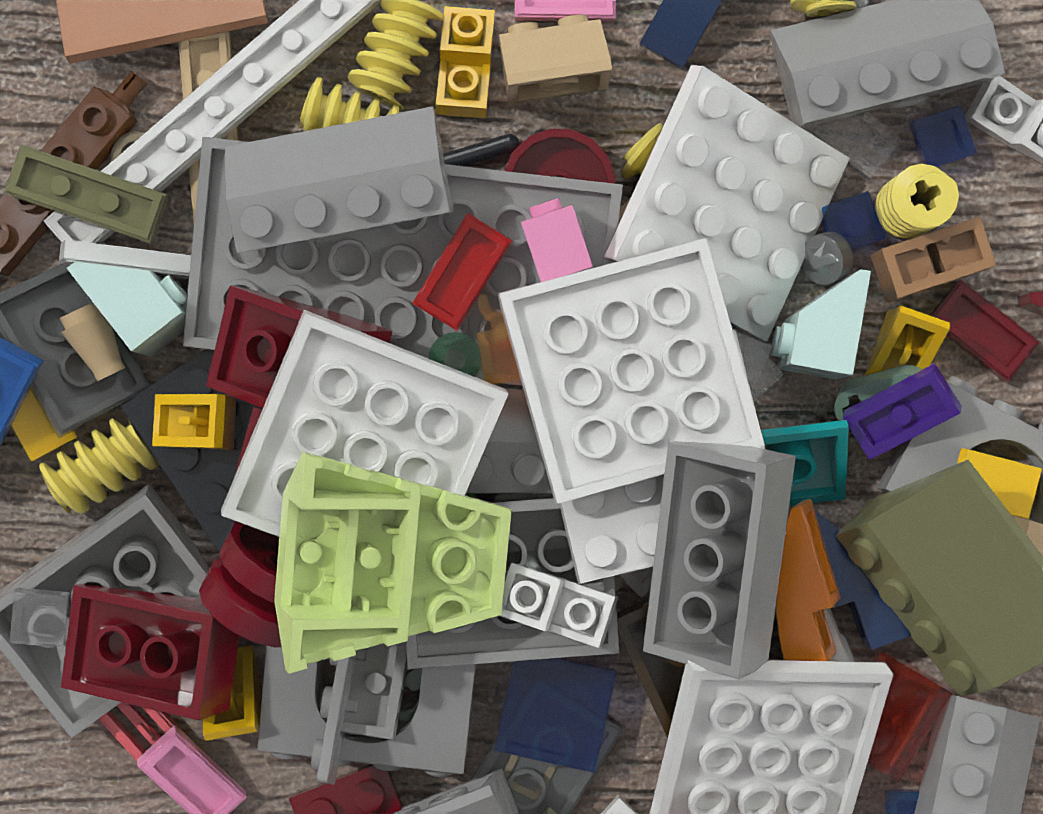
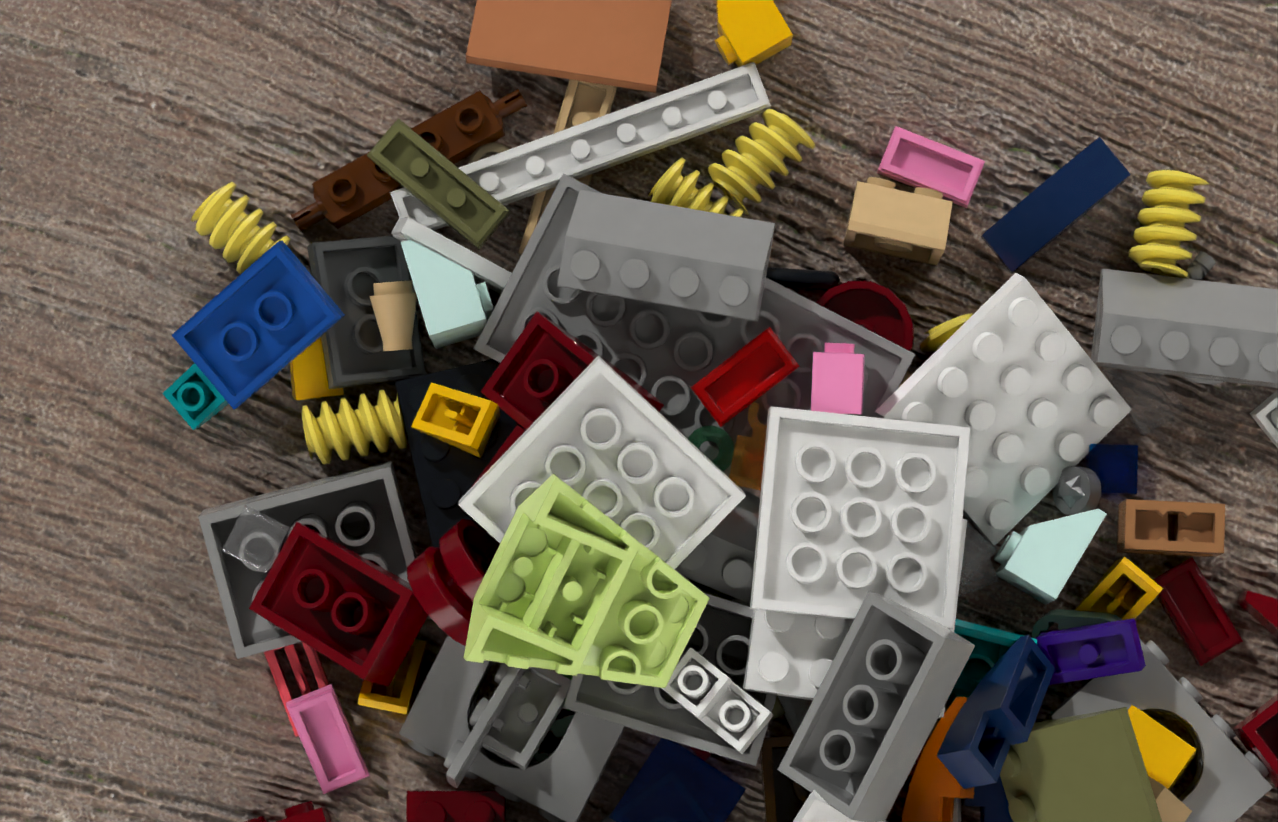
camera: 30 degrees right, 5 degrees down
(465, 62) = (818, 193): yellow slope -> none
(838, 512) = (997, 715): none -> dark blue slope
(932, 189) = (1182, 454): light yellow piece -> none
(943, 137) = (1222, 424): clear blue plate -> none

